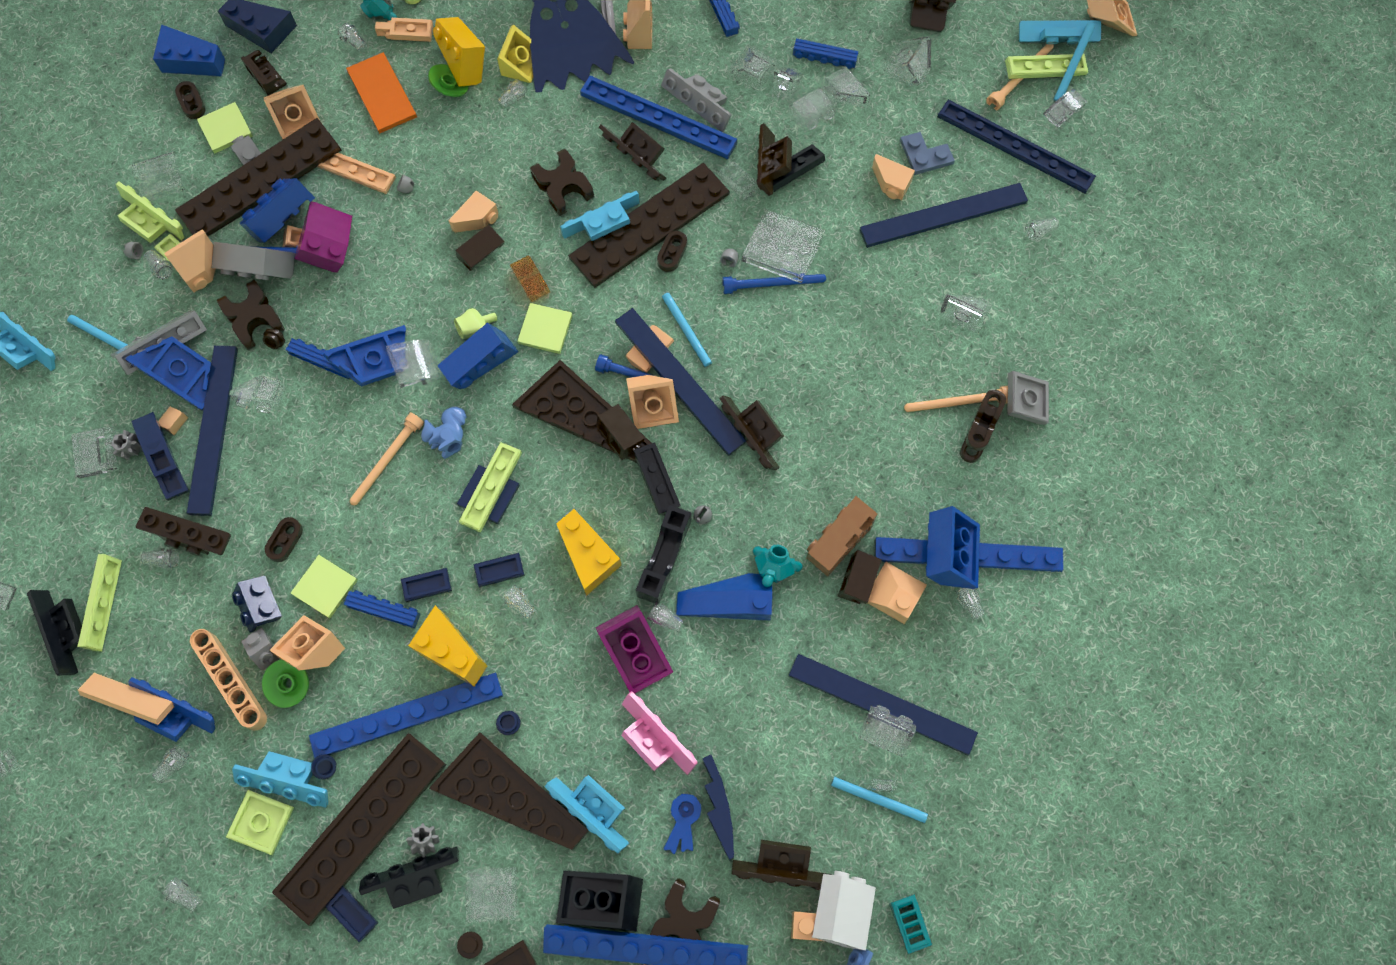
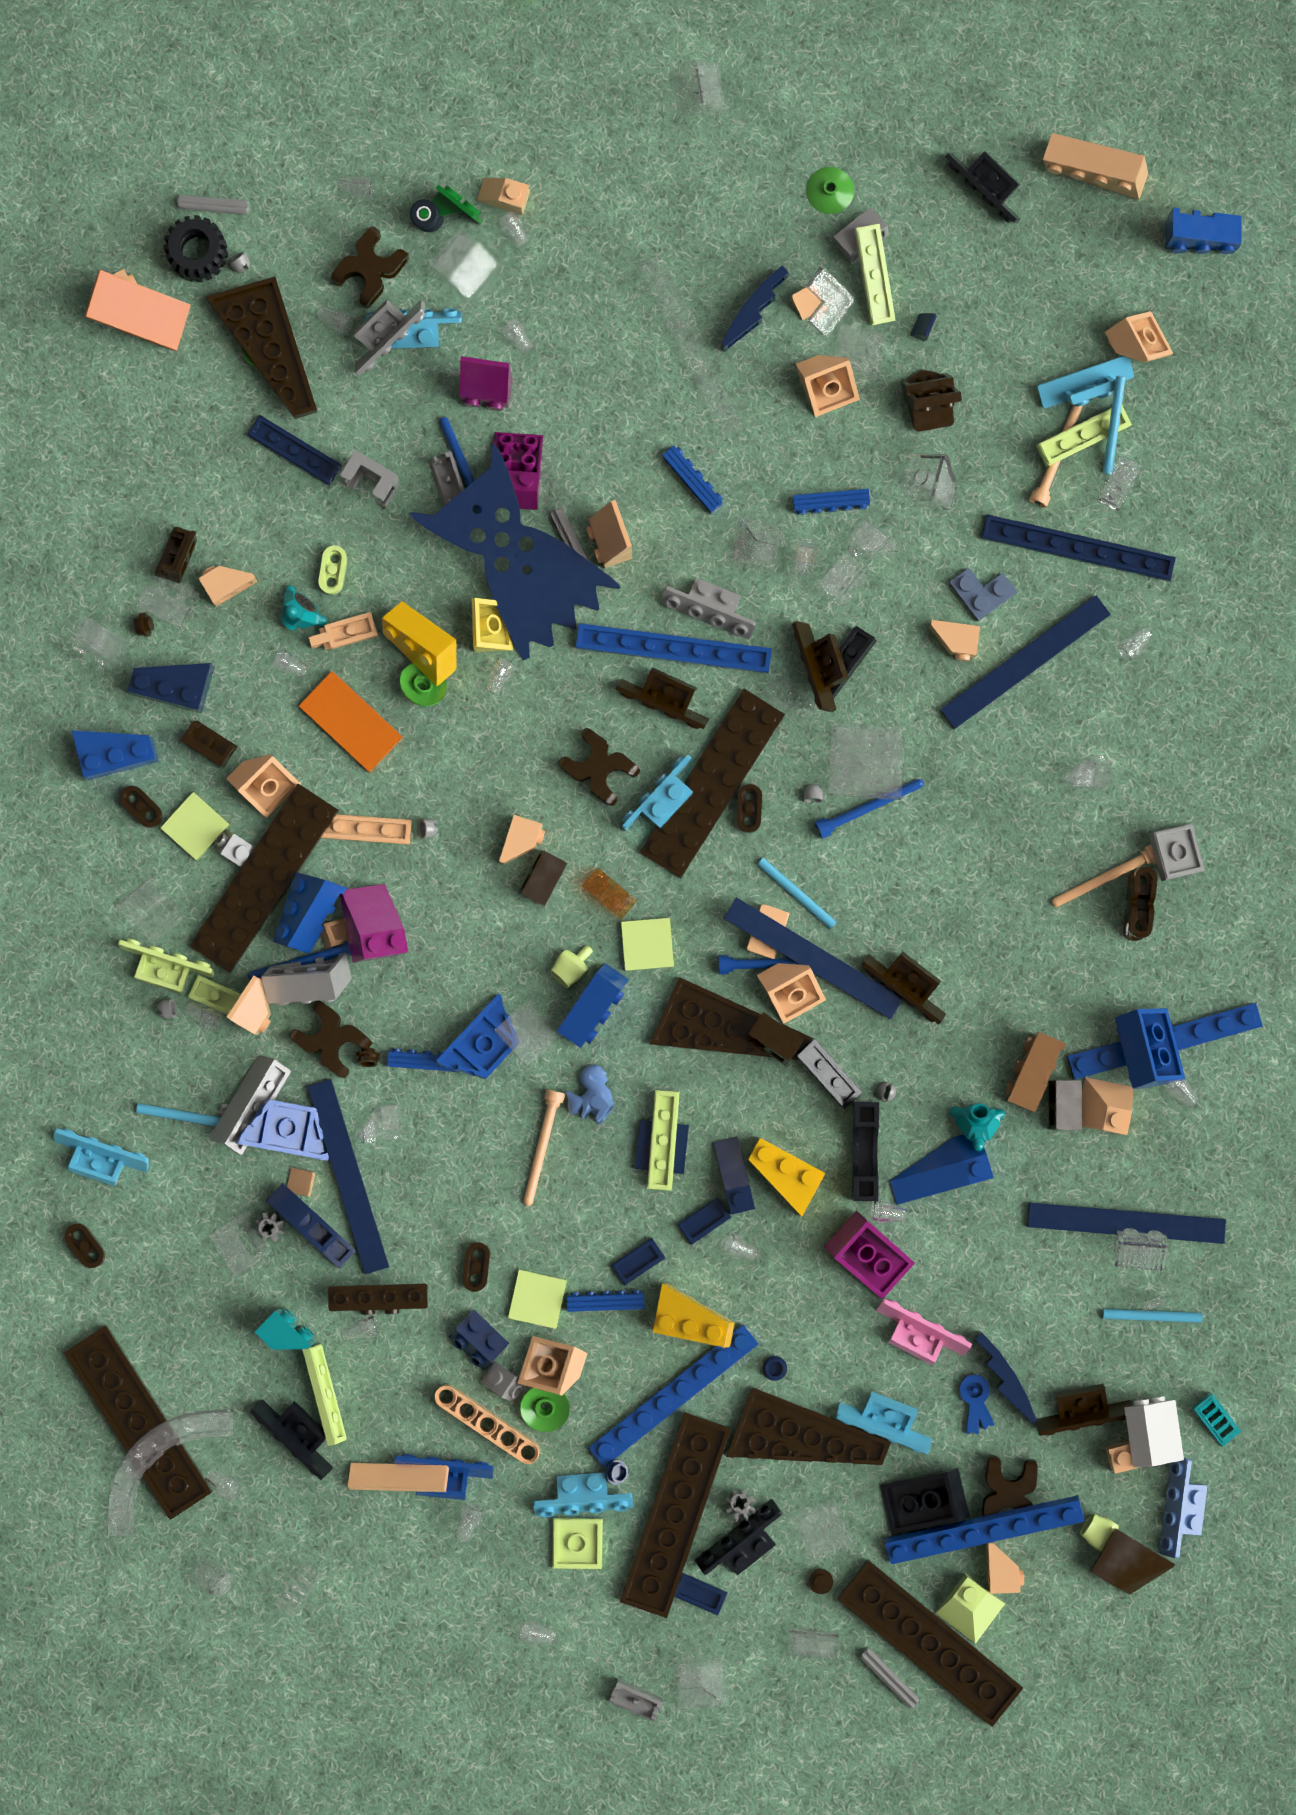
camera: 20 degrees left, 15 degrees up
(88, 531) = (280, 1332): none -> teal slope
(539, 541) = (734, 1175): none -> dark blue slope

